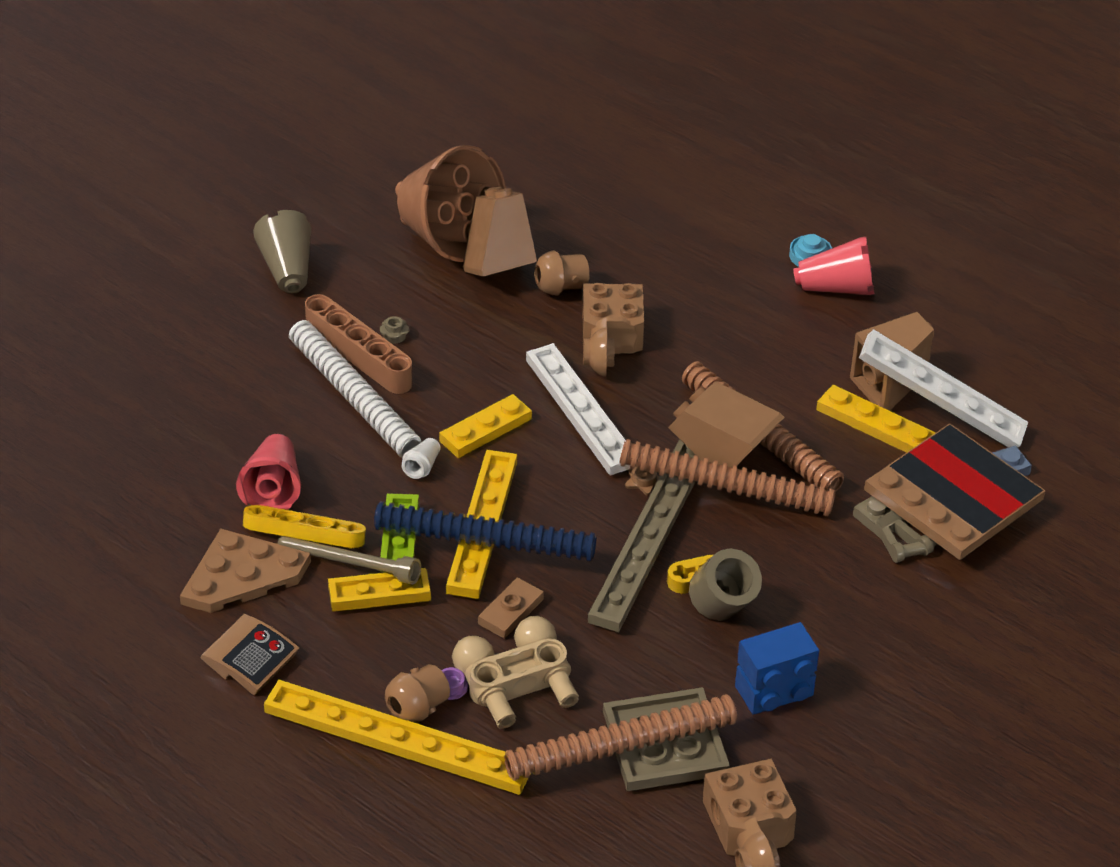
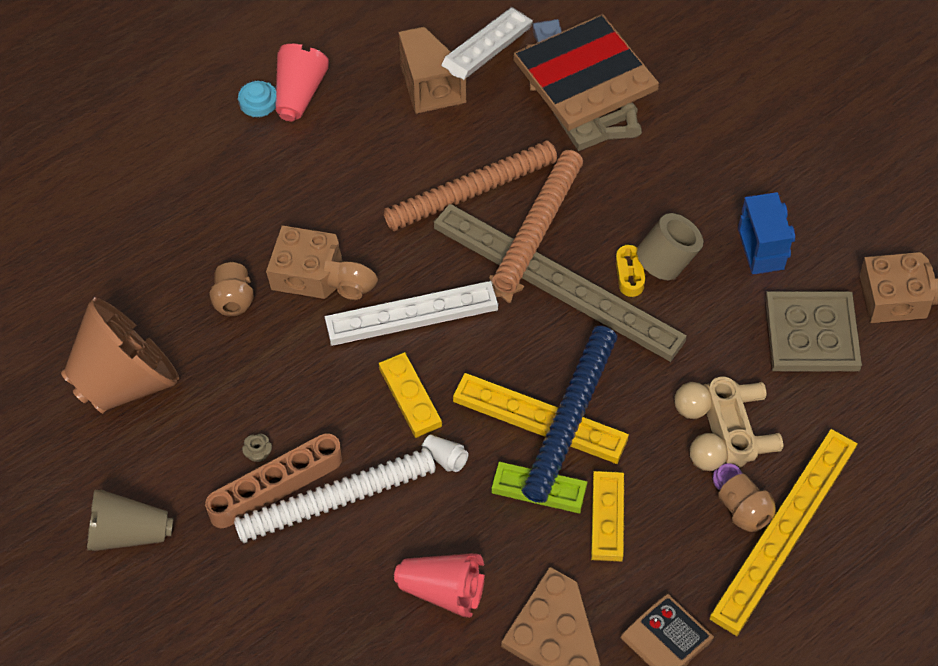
camera: 75 degrees left, 15 degrees up
(304, 526) = (511, 566): yellow beam -> none
(404, 569) = (602, 486): dark tan piece -> none
(498, 234) = (180, 325): medium nougat slope -> none
(510, 608) = (643, 416): medium nougat plate -> none
(620, 737) = (827, 359): nougat piece -> none
(723, 424) = (490, 201): medium nougat slope -> none
(872, 419) = (478, 106): yellow plate -> none

